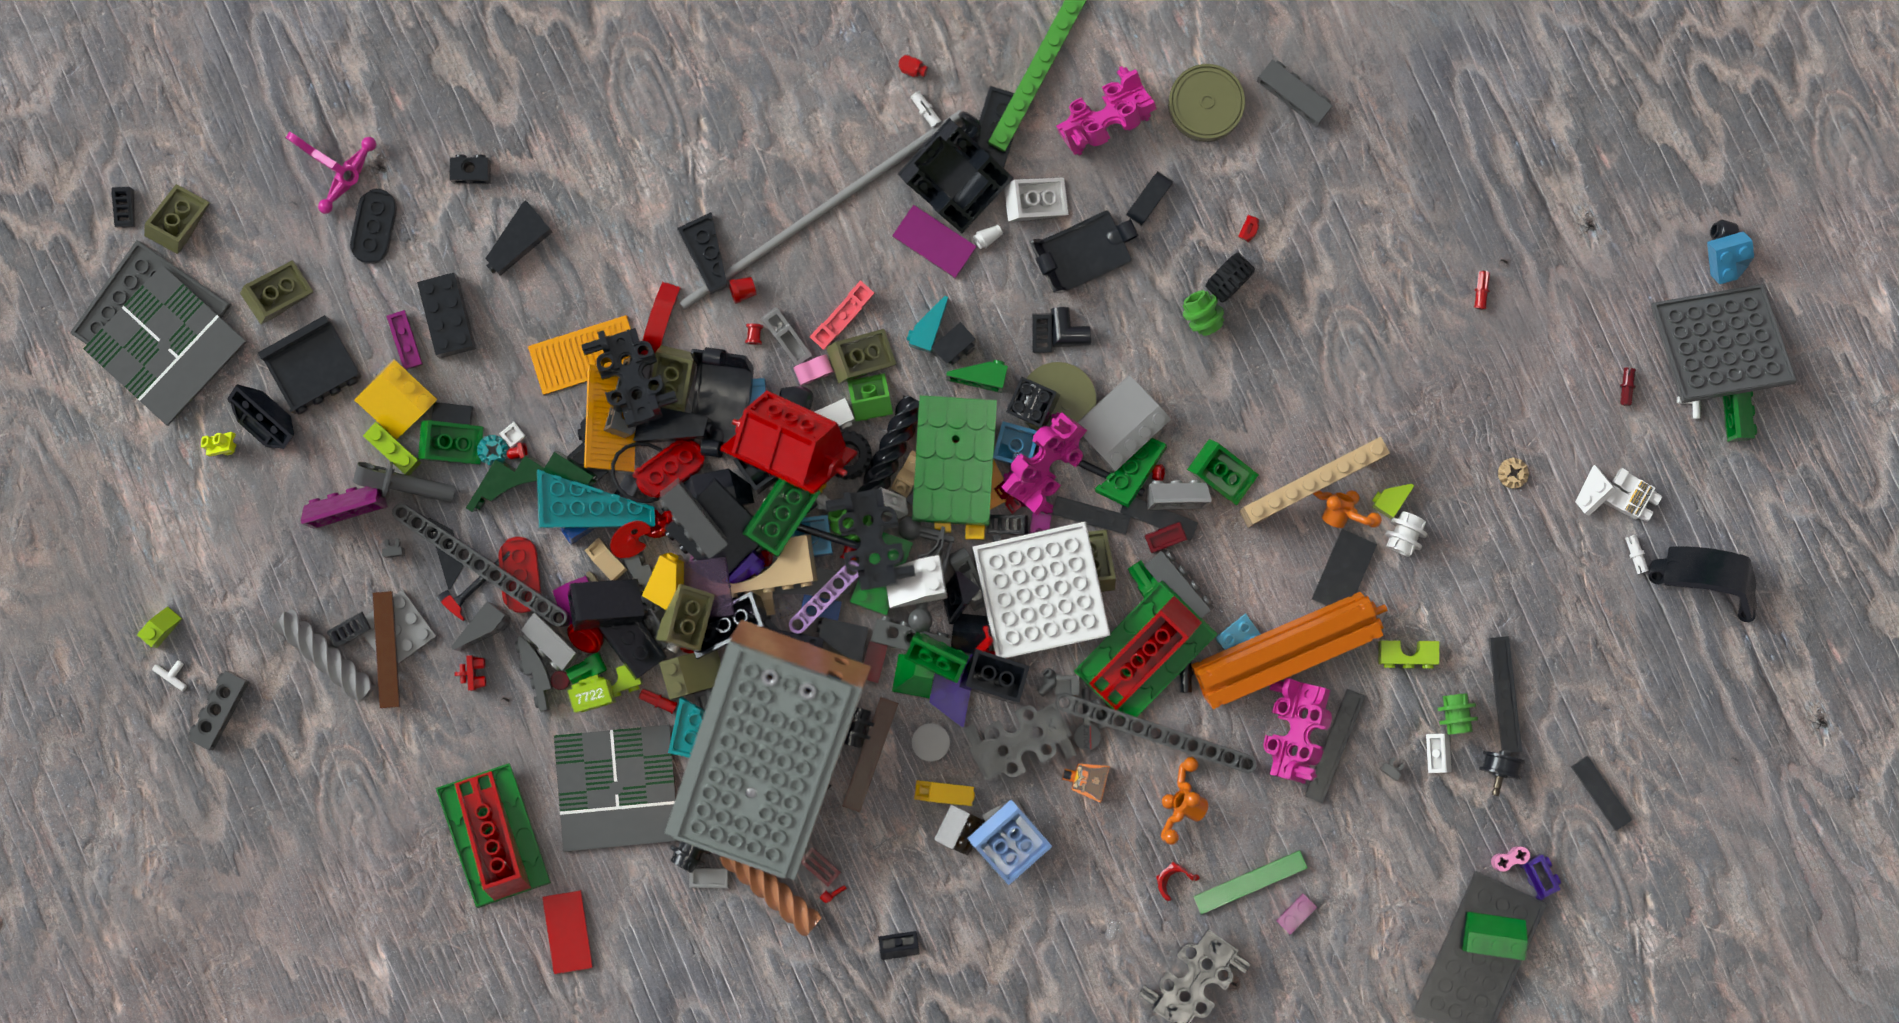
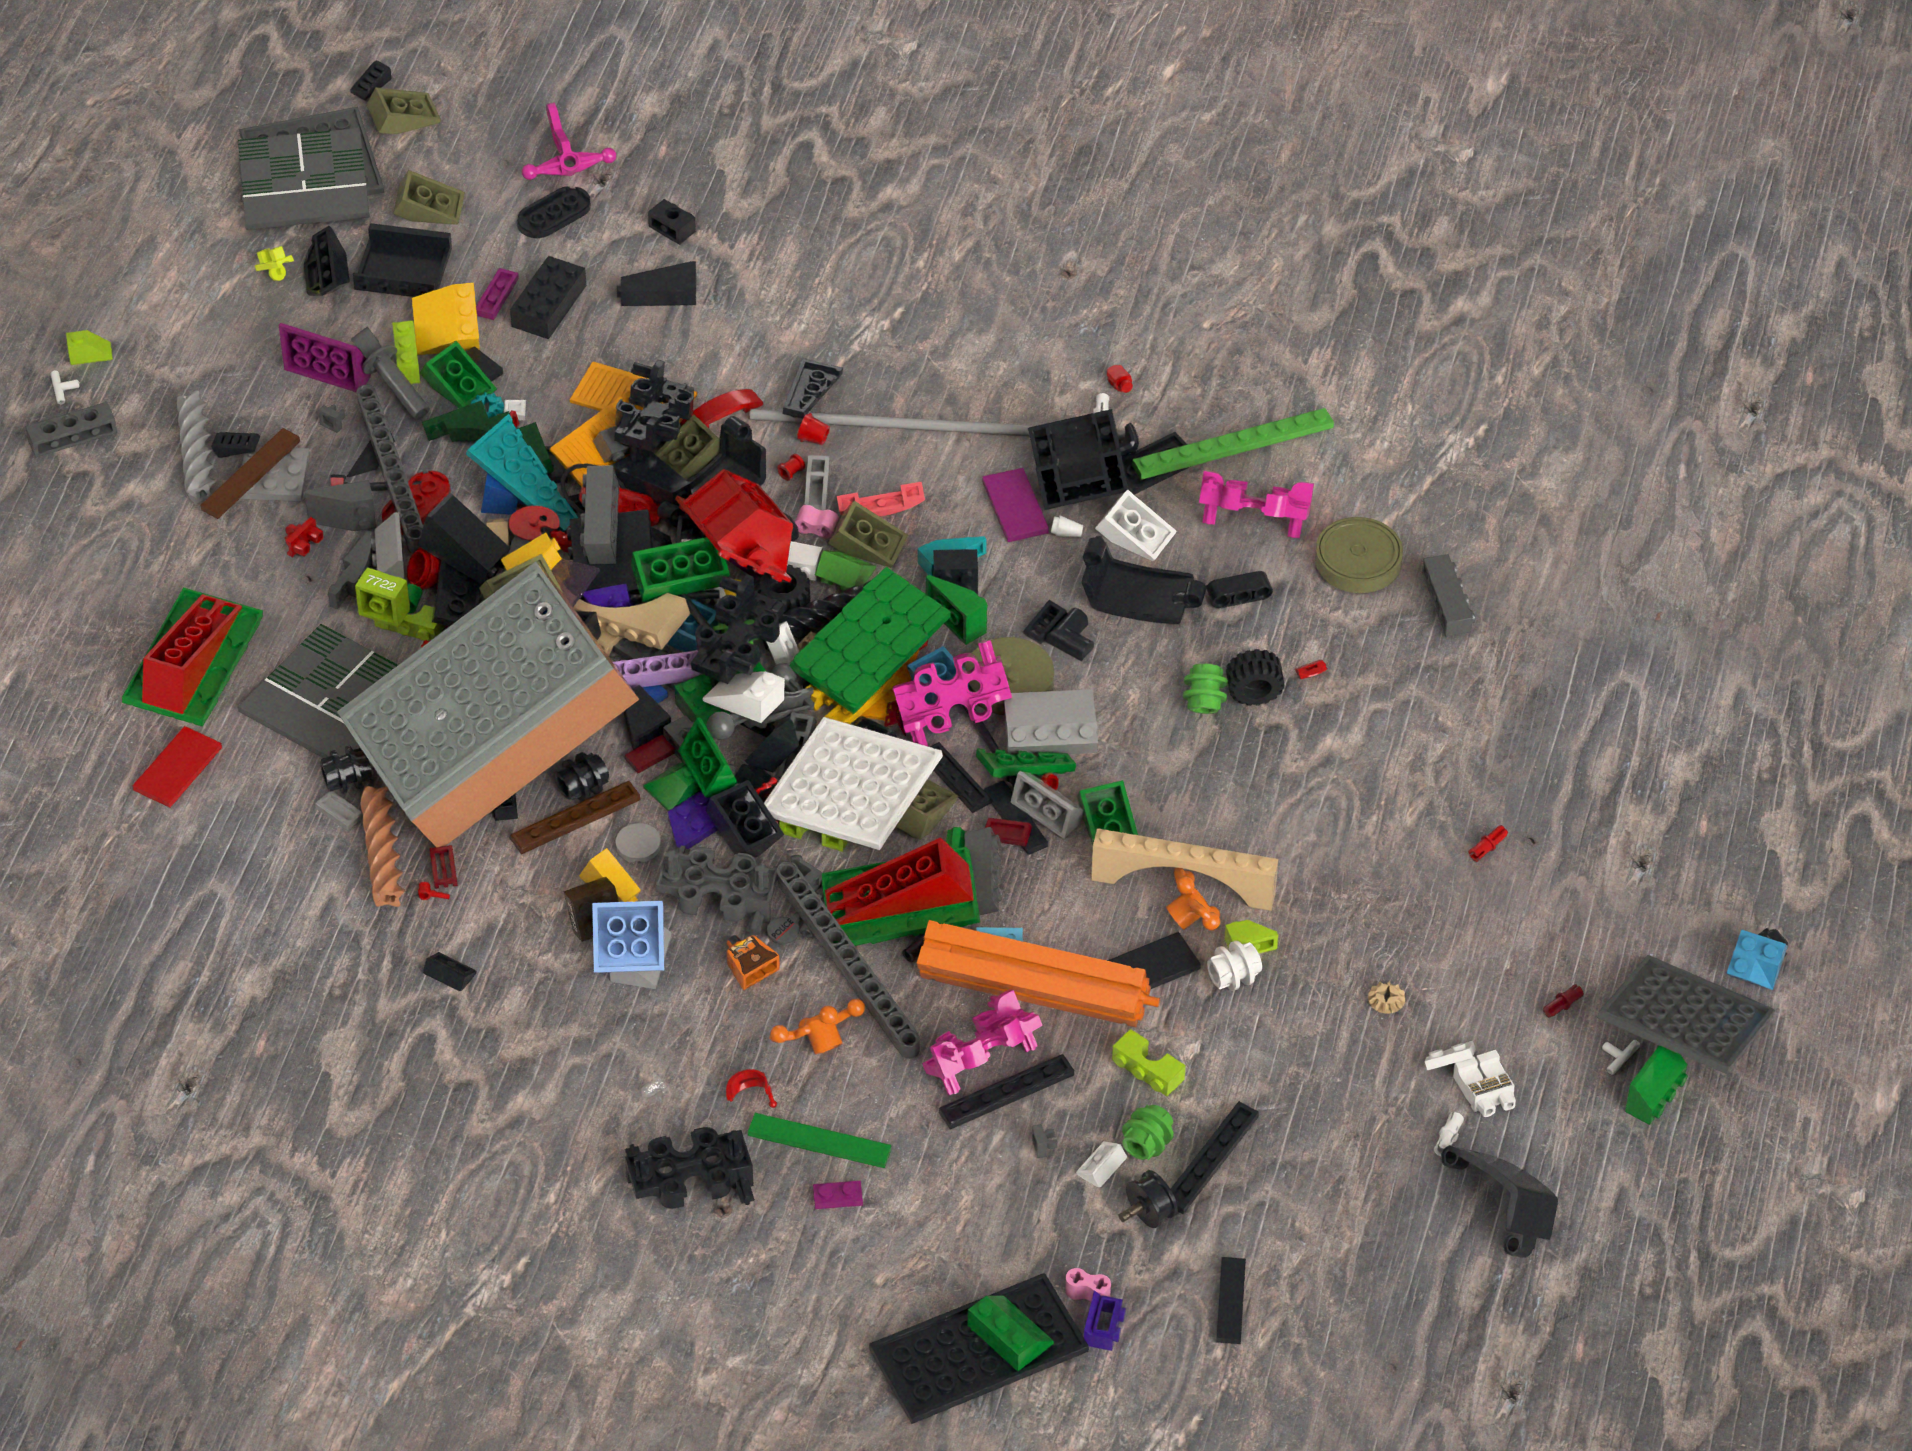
camera: 40 degrees right, 35 degrees down
(1033, 402) = (981, 627): black brick -> none

